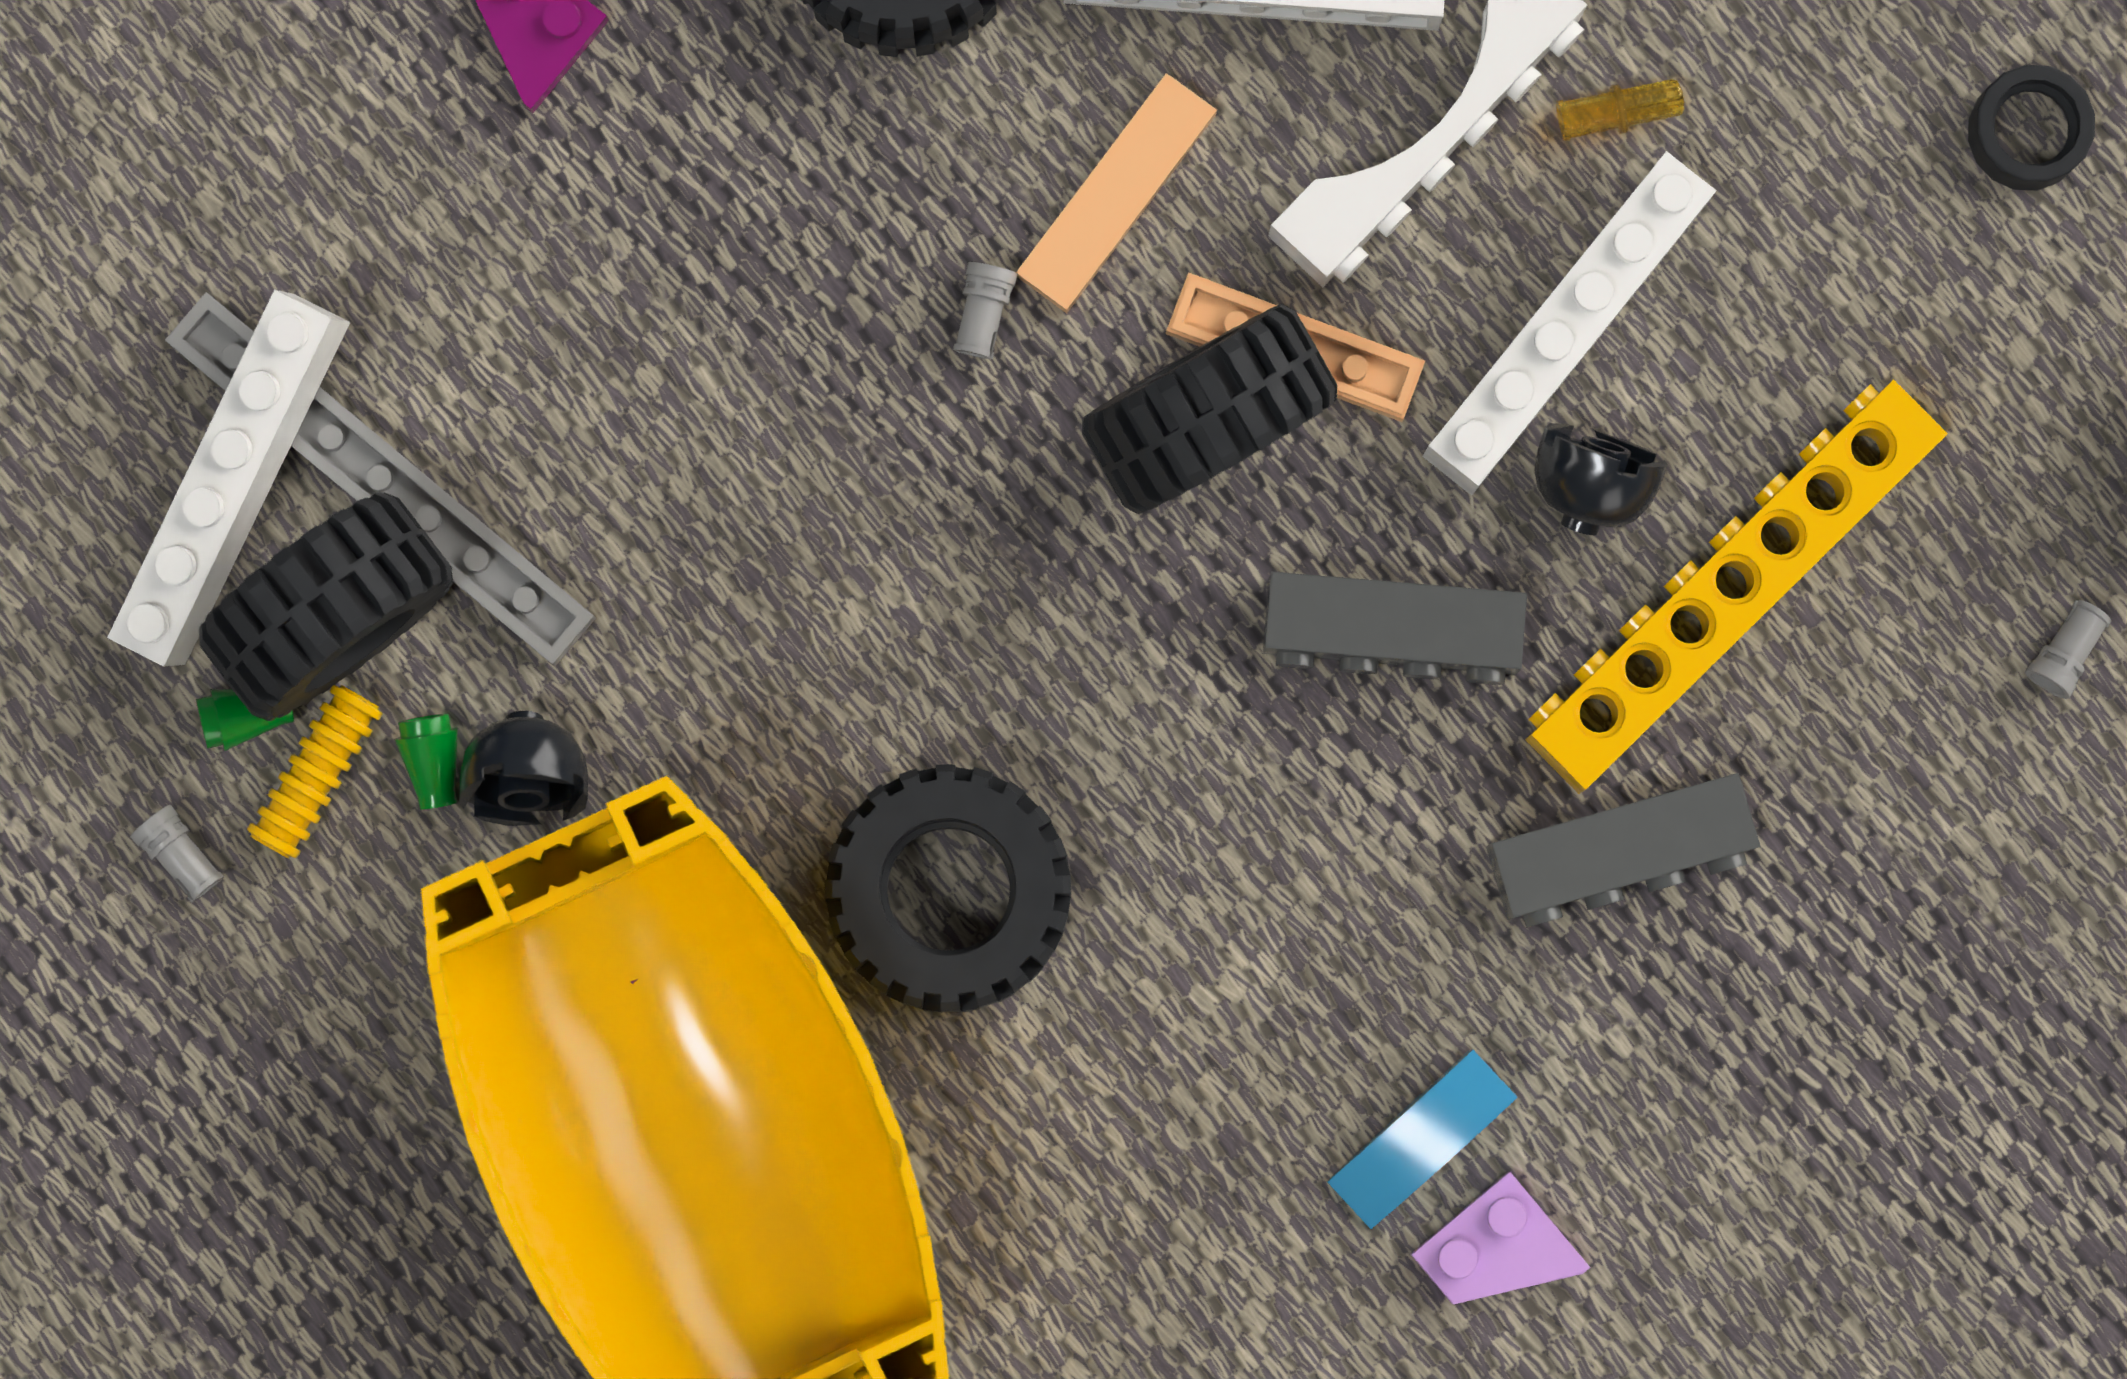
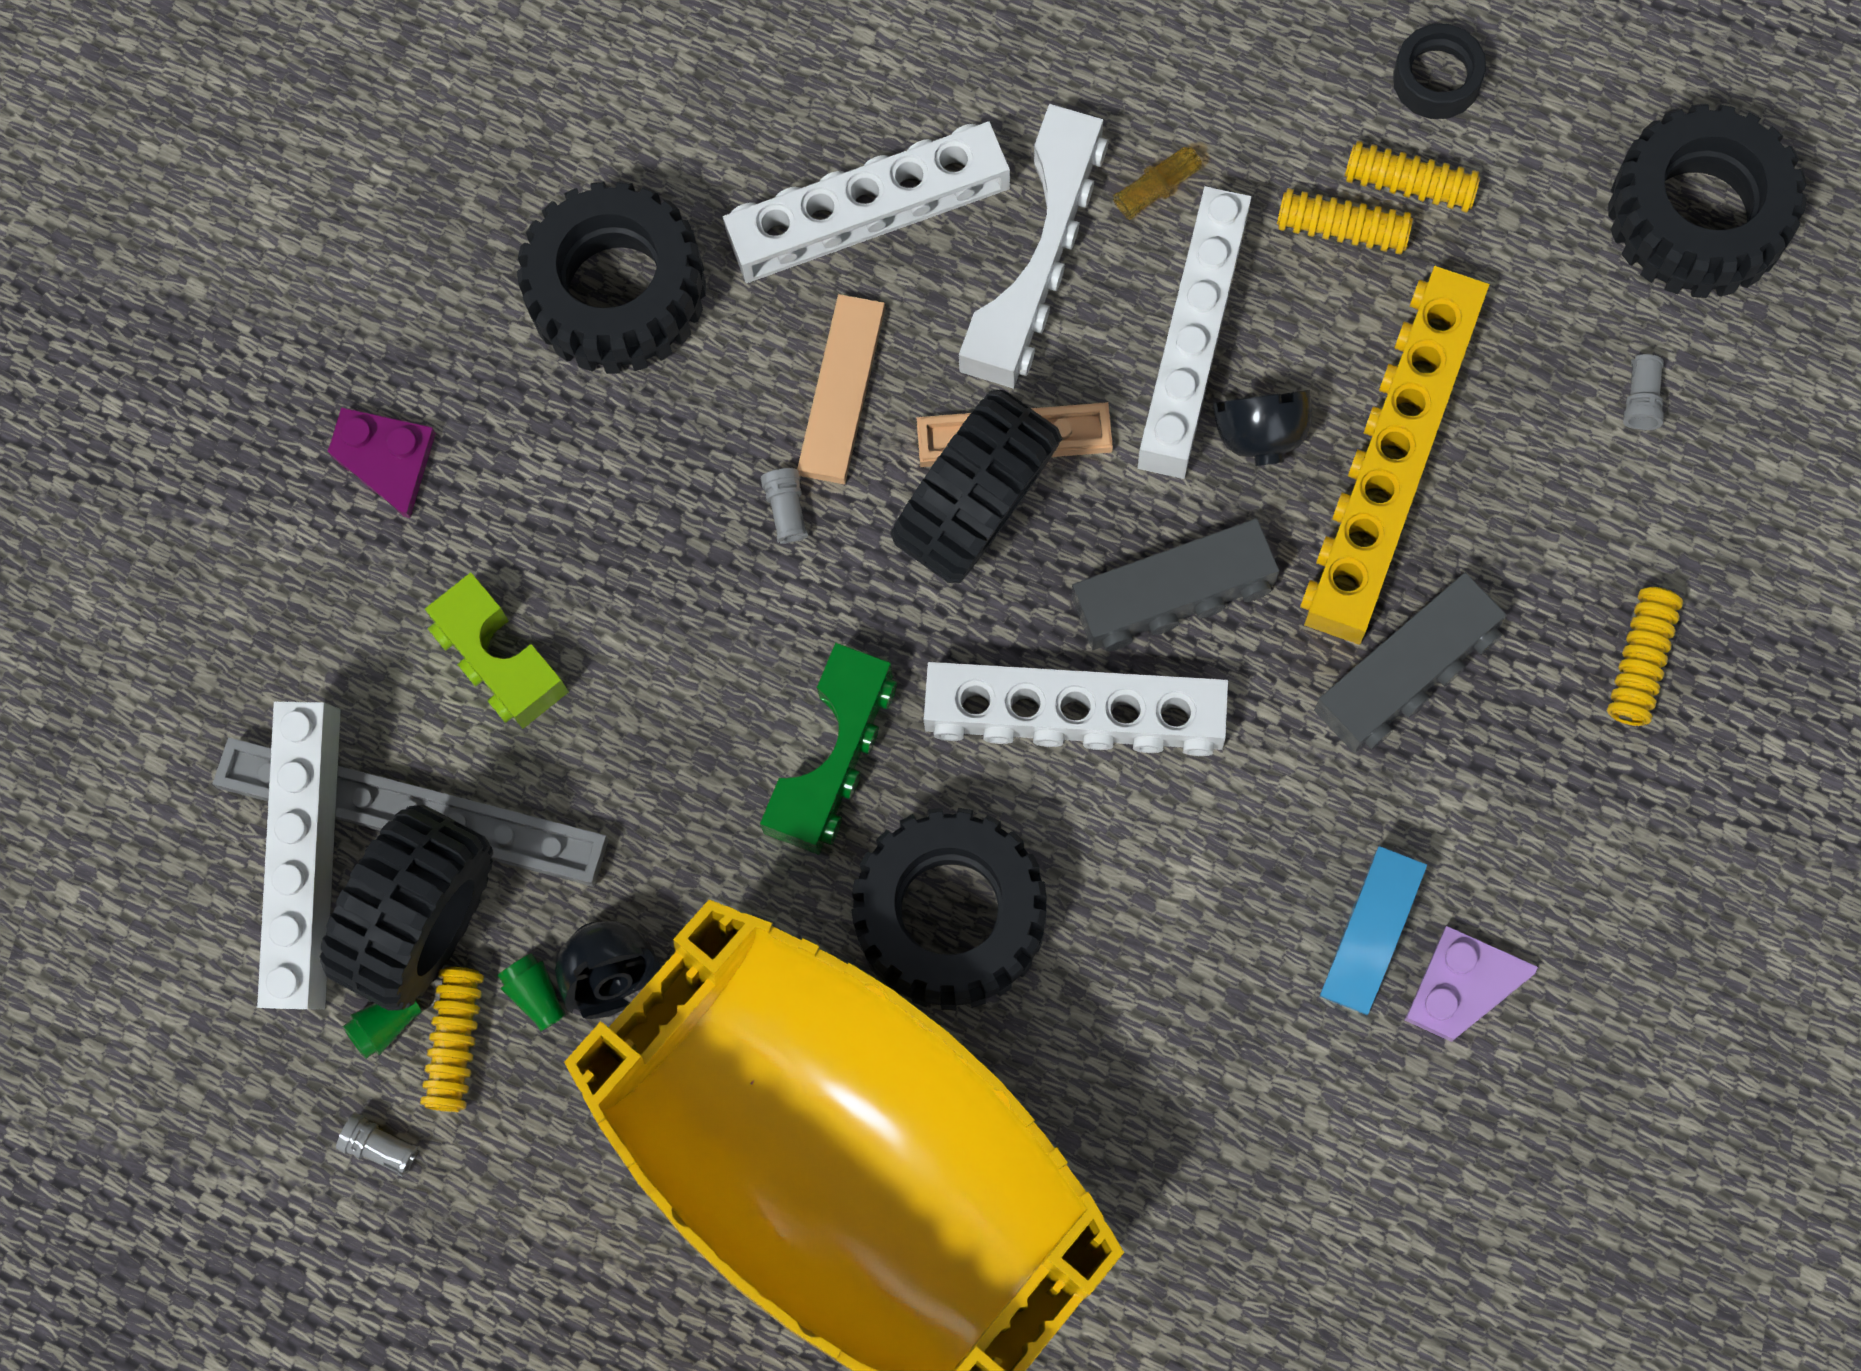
camera: 15 degrees left, 10 degrees down
(543, 279) = (520, 684): none -> lime arch
(841, 689) = (806, 806): none -> green arch
(1357, 777) = (1100, 692): none -> white brick
(1819, 267) = (1344, 221): none -> yellow piece
(1901, 966) = (1645, 655): none -> yellow piece
(1929, 248) = (1412, 176): none -> yellow piece

